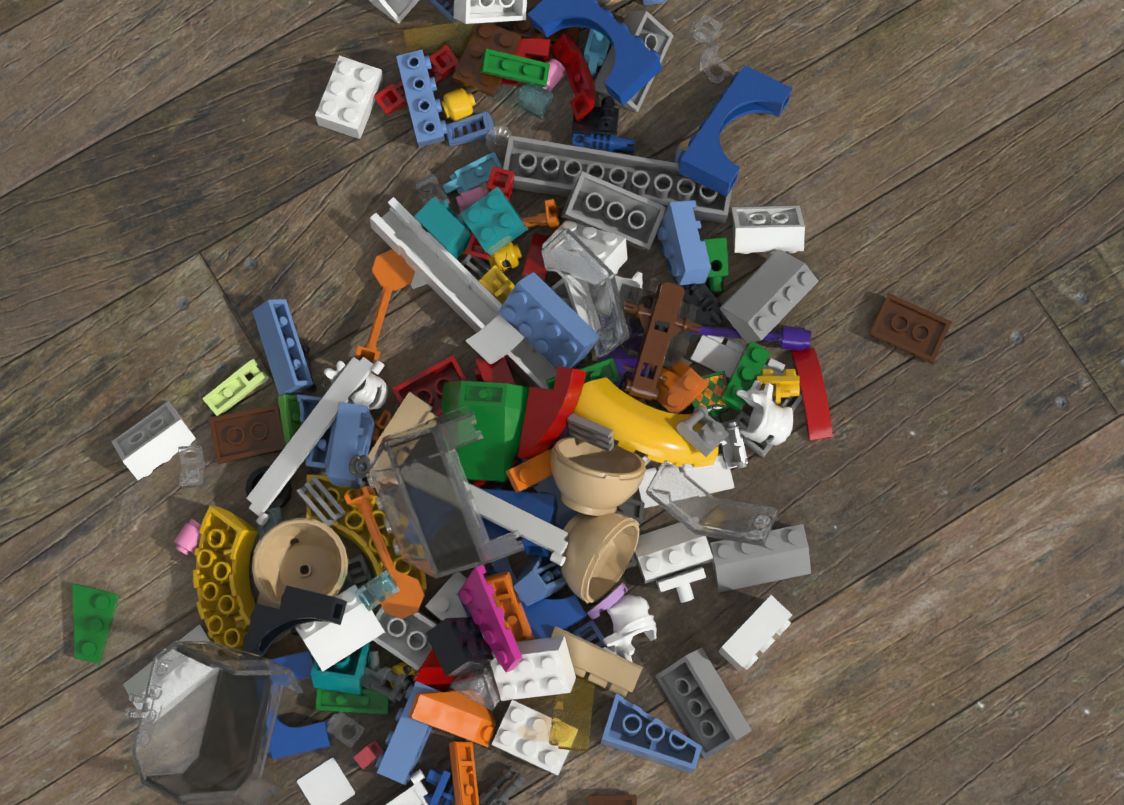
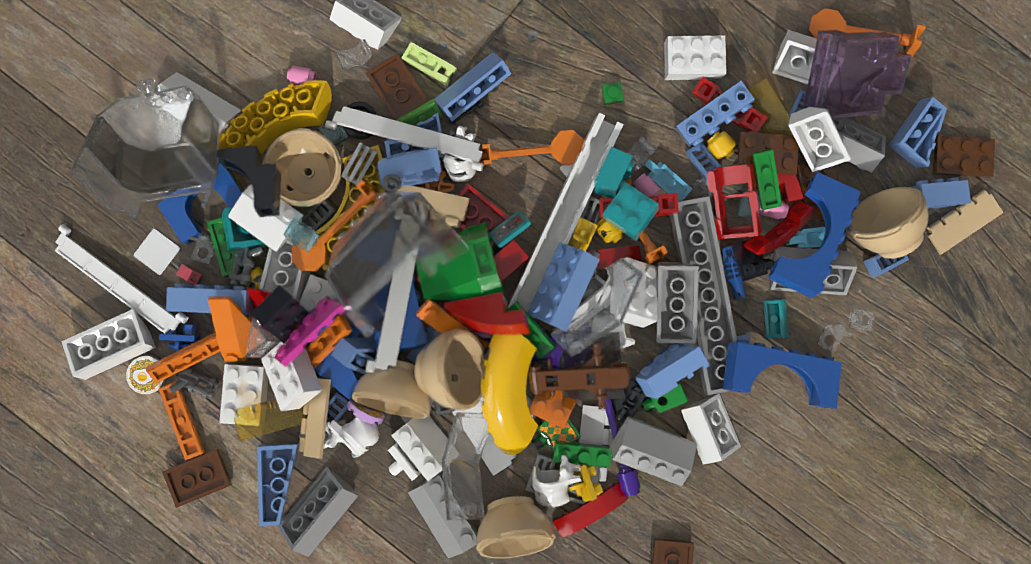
camera: 65 degrees right, 10 degrees up
(92, 621) = (214, 30): green wing -> none
(352, 200) = (612, 93): none -> green plate
(461, 359) = (509, 229): none -> slope
(495, 339) = (535, 249): white sticker -> none
(496, 103) = (734, 175): none -> red piece
(590, 432) = (483, 354): light grey tile -> none
(671, 117) = (776, 318): none -> teal slope
(708, 437) = (521, 445): light grey plate -> none
(733, 446) = (525, 463): light grey hinge -> none
(756, 634) = (381, 534): white brick -> none
(802, 478) = (514, 529): none -> tan piece

